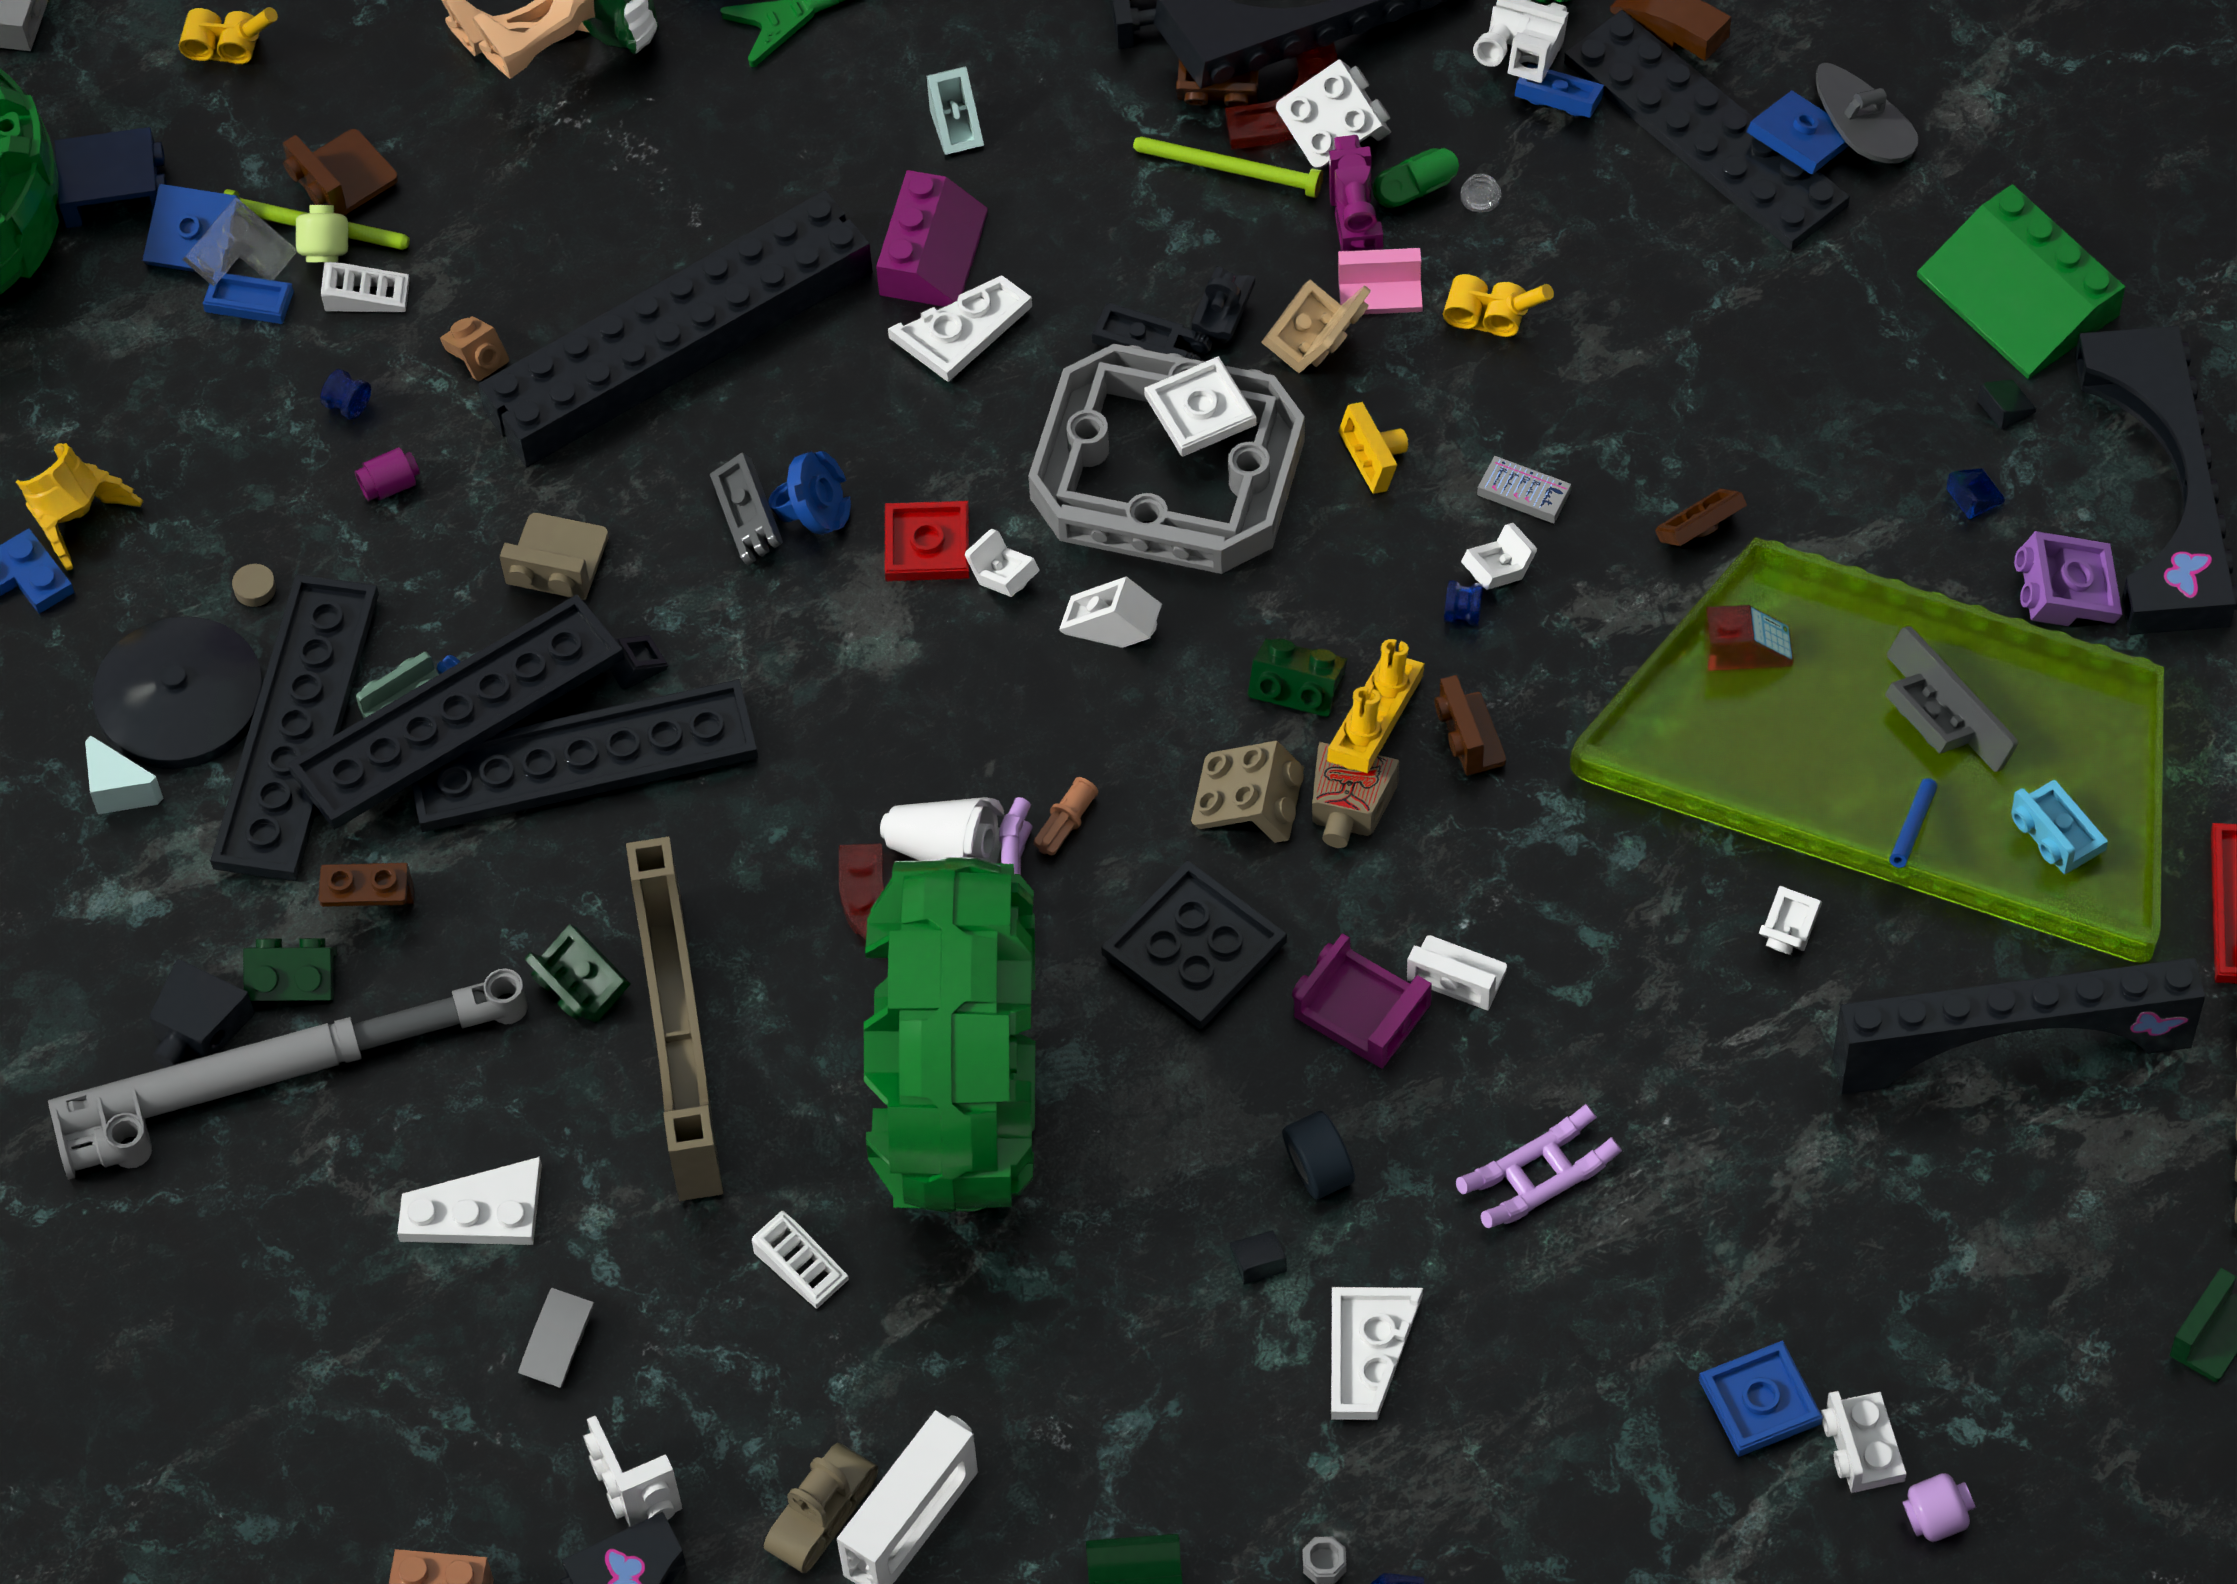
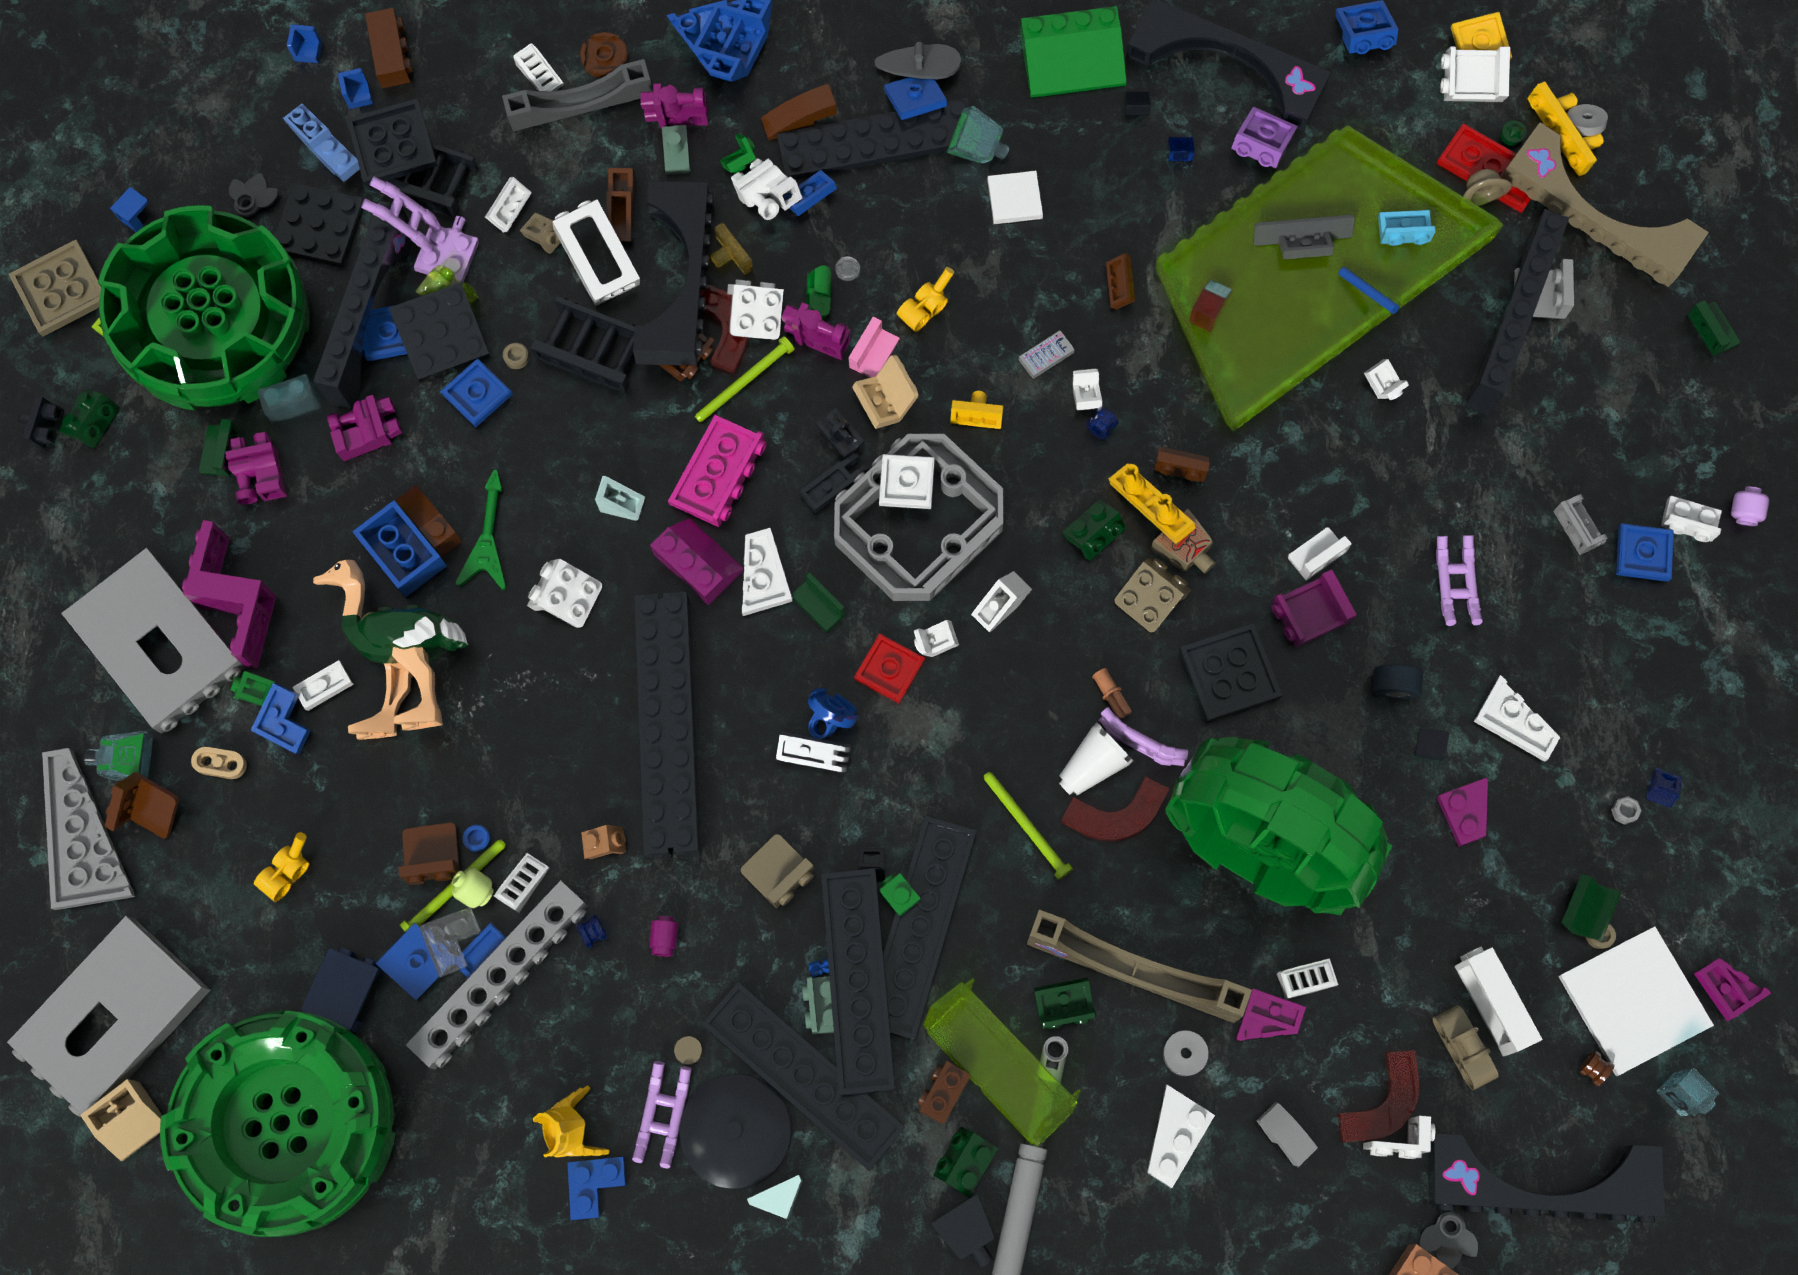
camera: 60 degrees left, 15 degrees up
(166, 580) = (670, 1130): none -> lavender piece
(227, 325) = (424, 1041): none -> light grey brick
(394, 212) = (476, 838): none -> blue tile
(448, 927) = (999, 1064): none -> clear neon green piece
(603, 1180) = (1197, 1048): none -> light grey piece
(607, 701) = (898, 894): none -> green bracket
(694, 1460) = (1395, 1109): none -> clear red plate
(713, 1236) = (1269, 1017): none -> magenta wing
(768, 883) = (1028, 827): none -> lime bar
(785, 127) = (565, 592): none -> white bracket
(963, 411) = (819, 603): none -> dark green panel
(1074, 200) = (717, 471): none -> dark pink bracket
(1185, 1350) = (1466, 811): none -> magenta wing
(1404, 49) = (730, 250): none -> clear yellow tile
(1740, 331) = (1015, 197): none -> white tile
(1745, 1289) = (1579, 525): none -> light grey hinge
(1787, 233) = (977, 137): none -> clear light blue torso
(2094, 1066) = (1558, 292): none -> light grey bracket
(2199, 894) = (1486, 187): none -> dark tan hat

